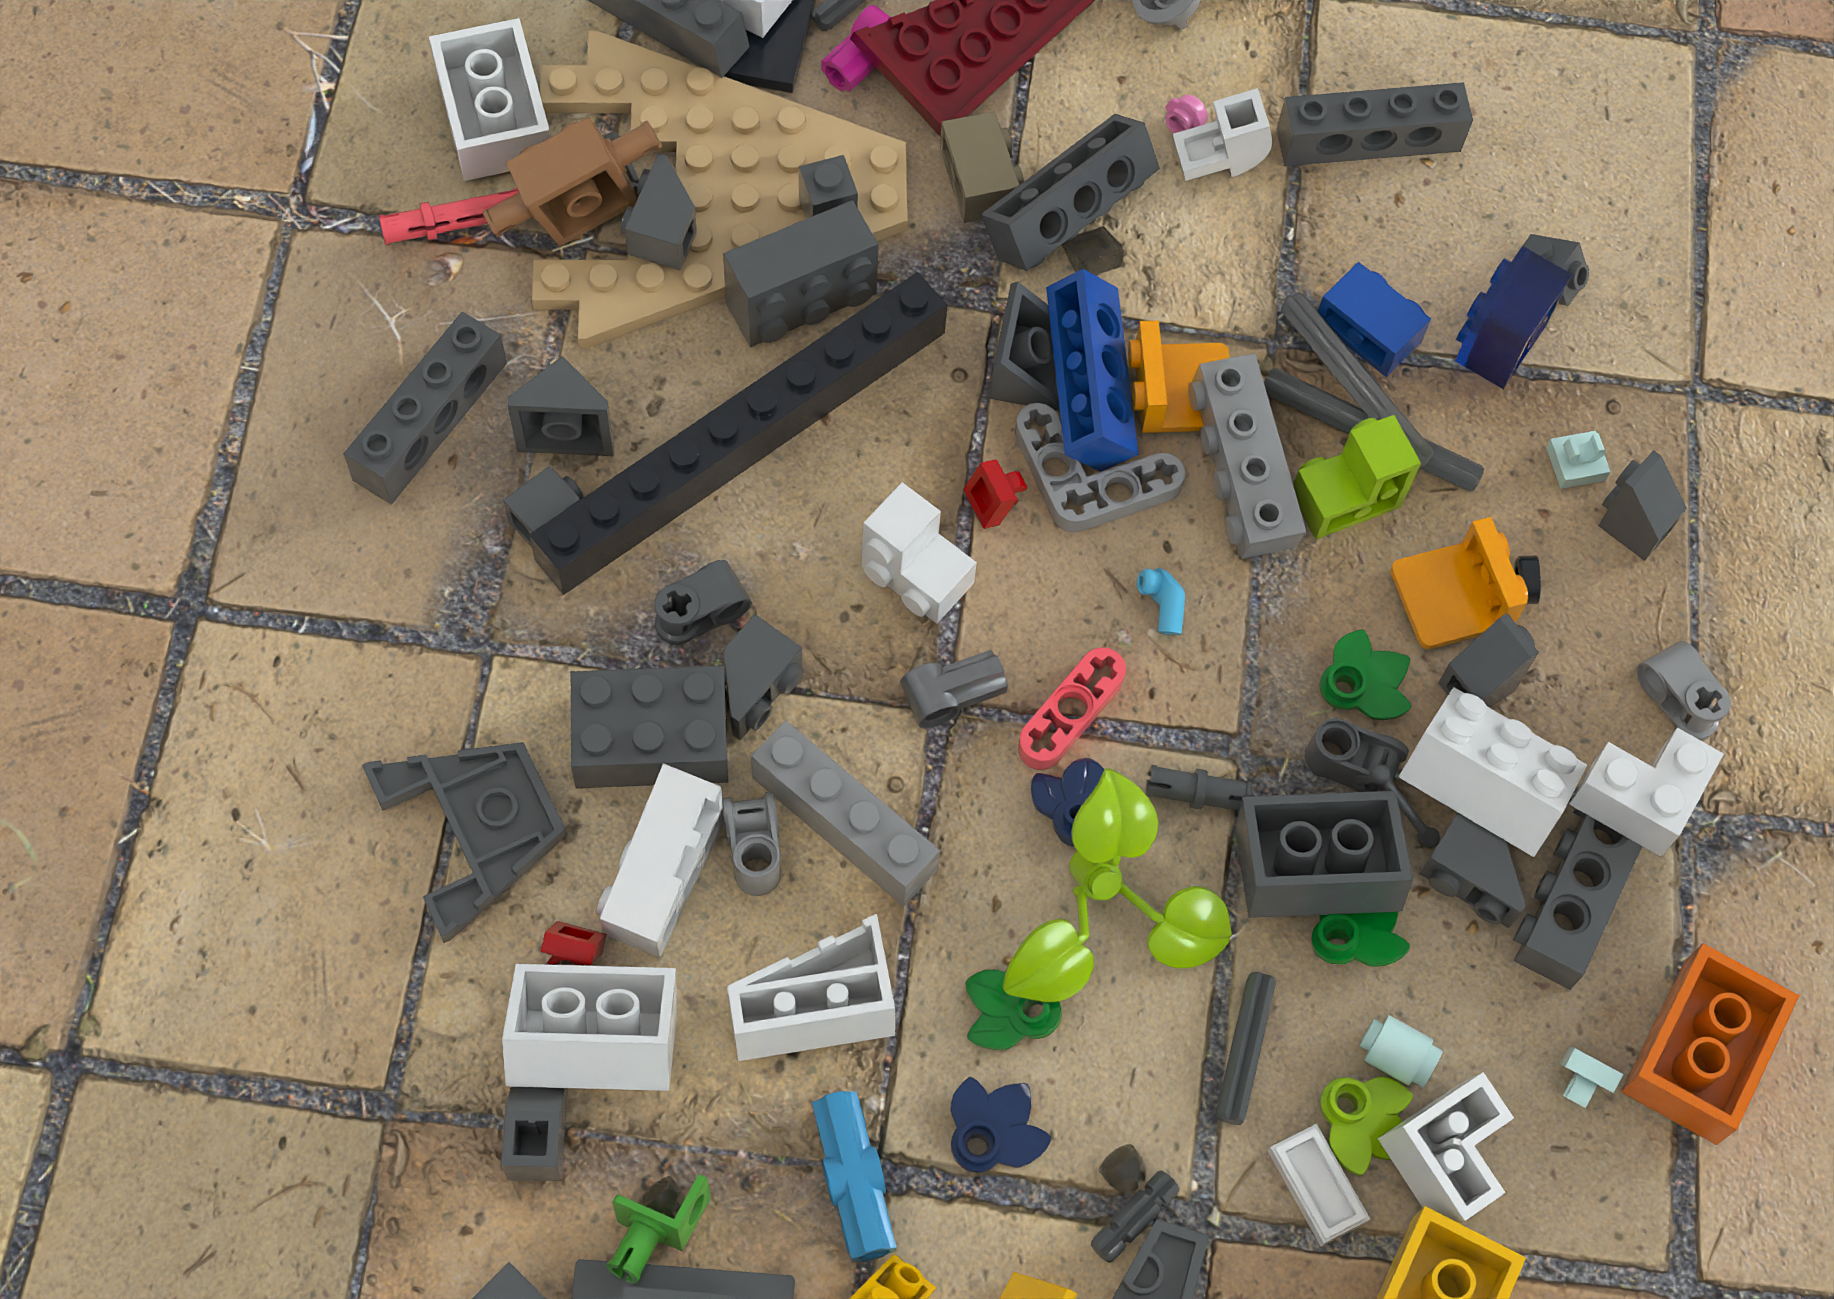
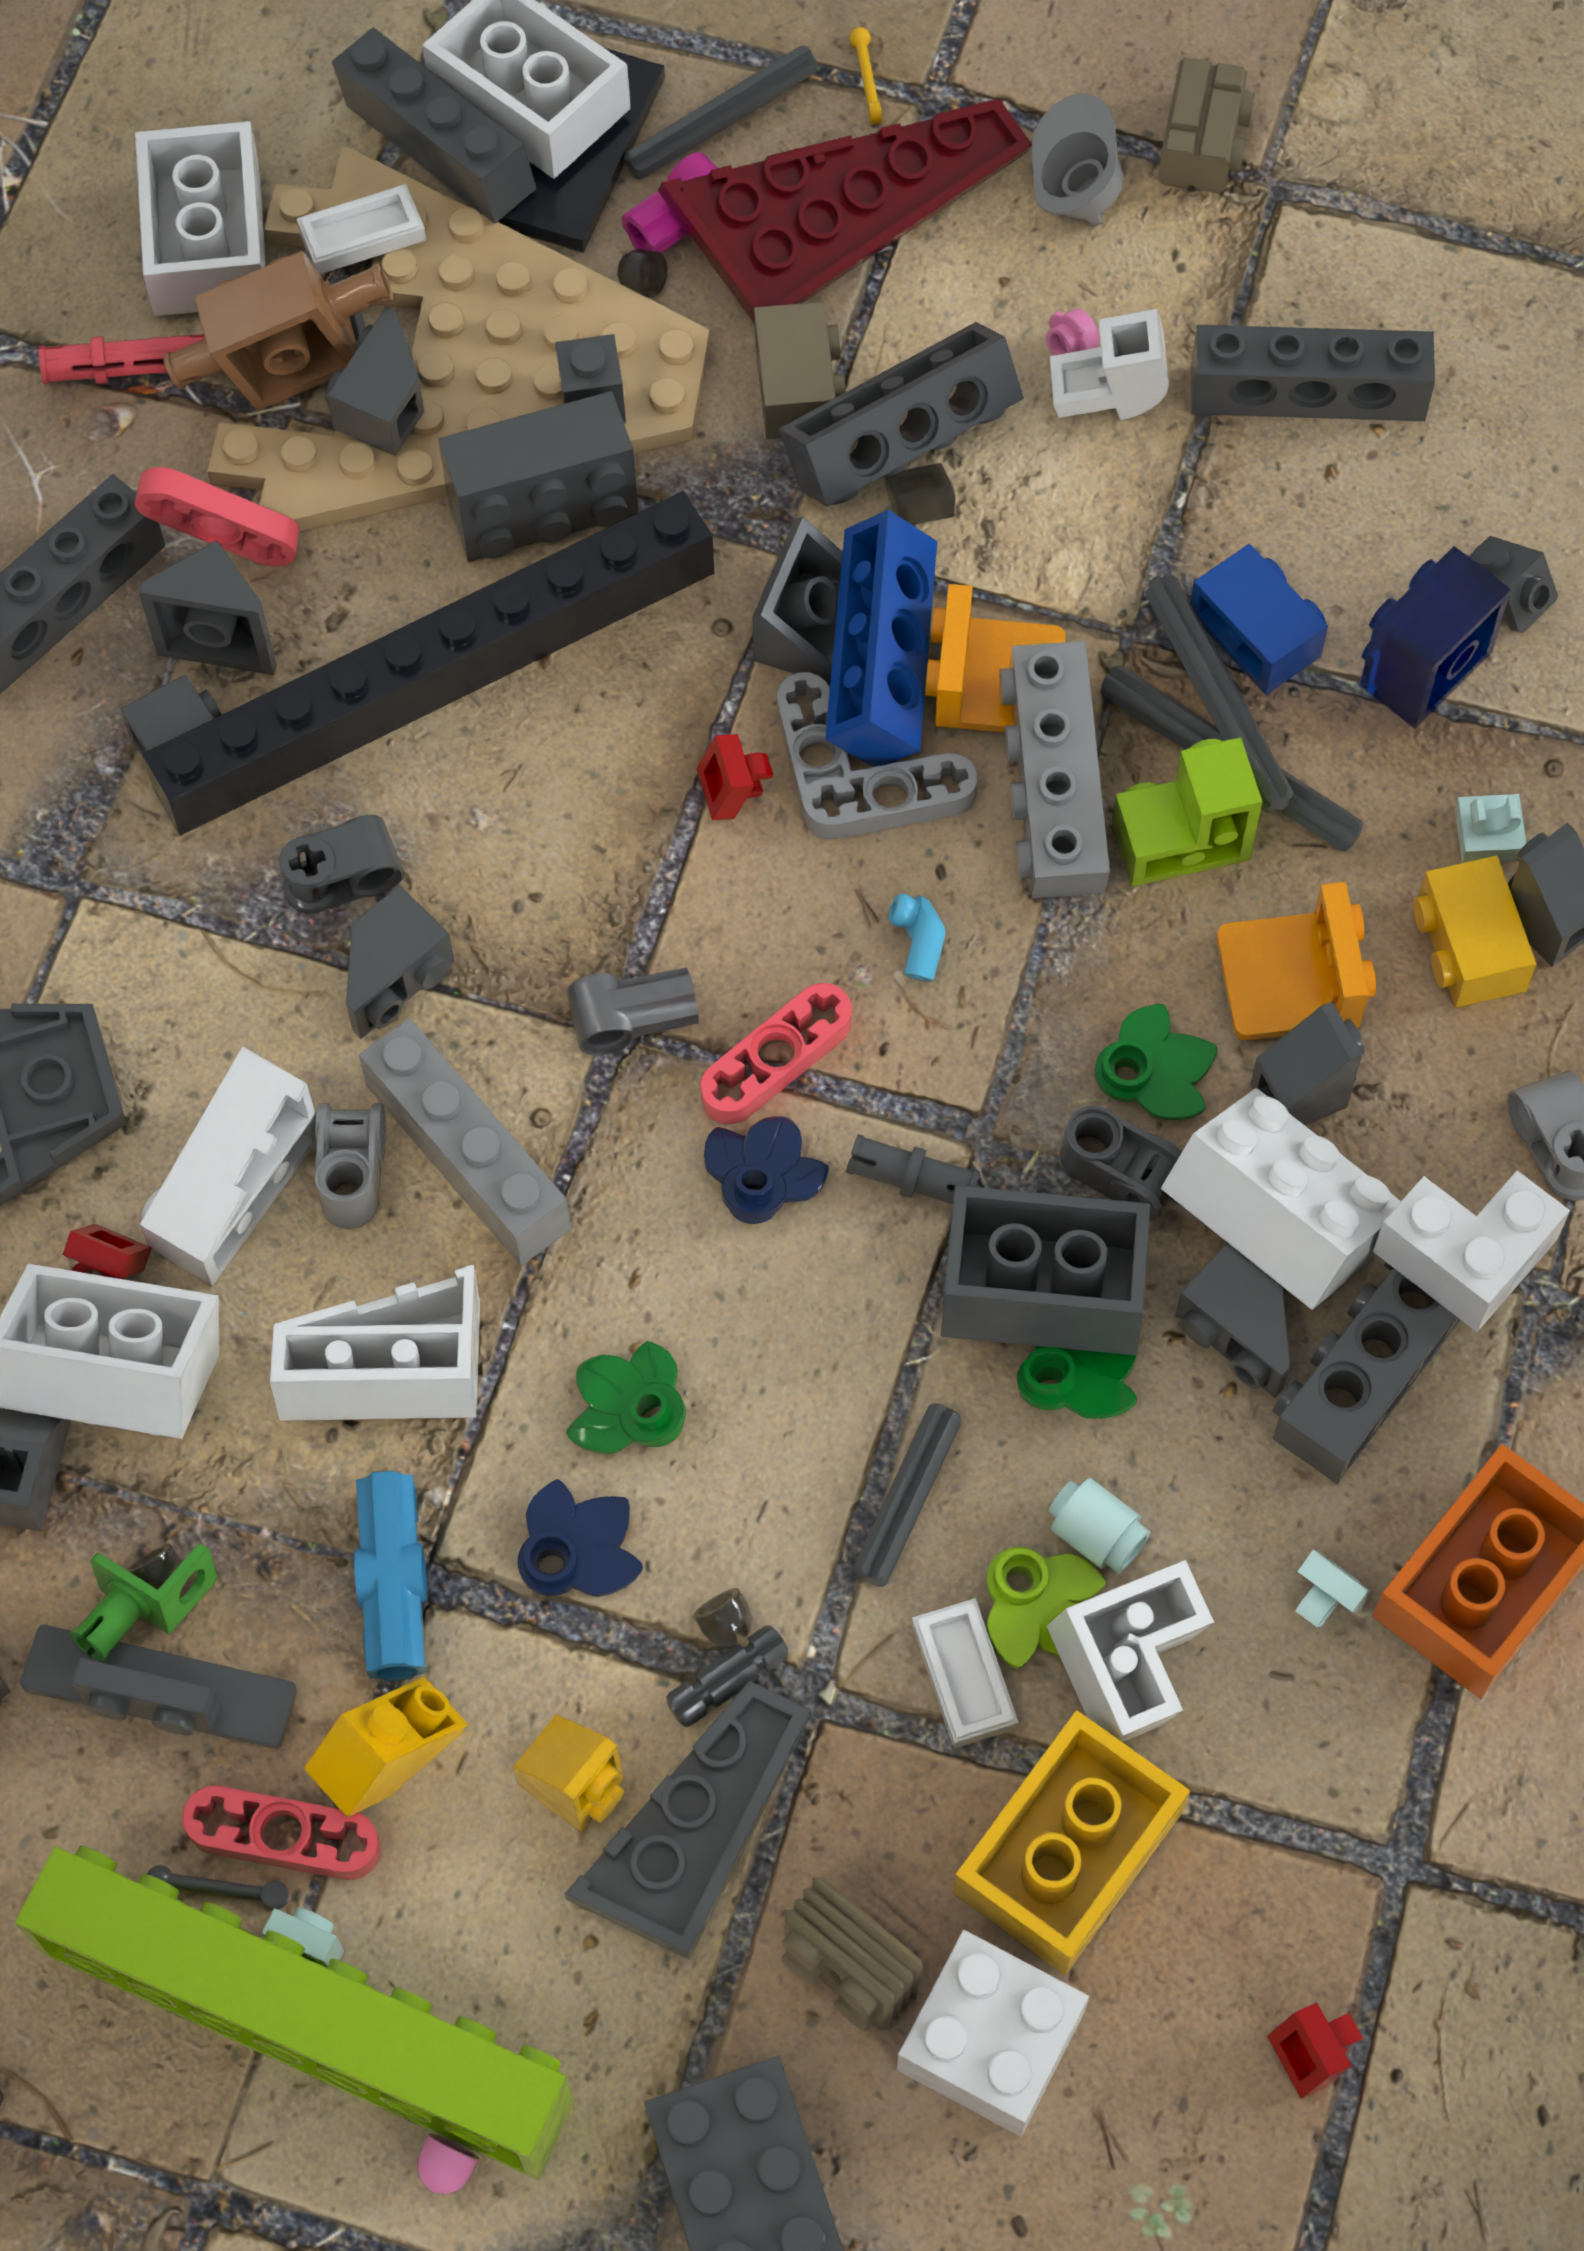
camera: 15 degrees right, 0 degrees up
(551, 335) = (217, 516): none -> coral beam
(620, 93) = (361, 229): none -> white tile
(646, 717) = (250, 991): dark grey brick -> none
(844, 102) = (643, 272): none -> clear smoke hinge
(912, 557) = (609, 841): white brick -> none
(1109, 825) = (765, 1193): lime plant -> none
(1426, 835) = (1139, 1183): dark grey hinge -> none
(1529, 570) = (1388, 968): black tile -> none
(1587, 542) = (1474, 932): none -> yellow brick

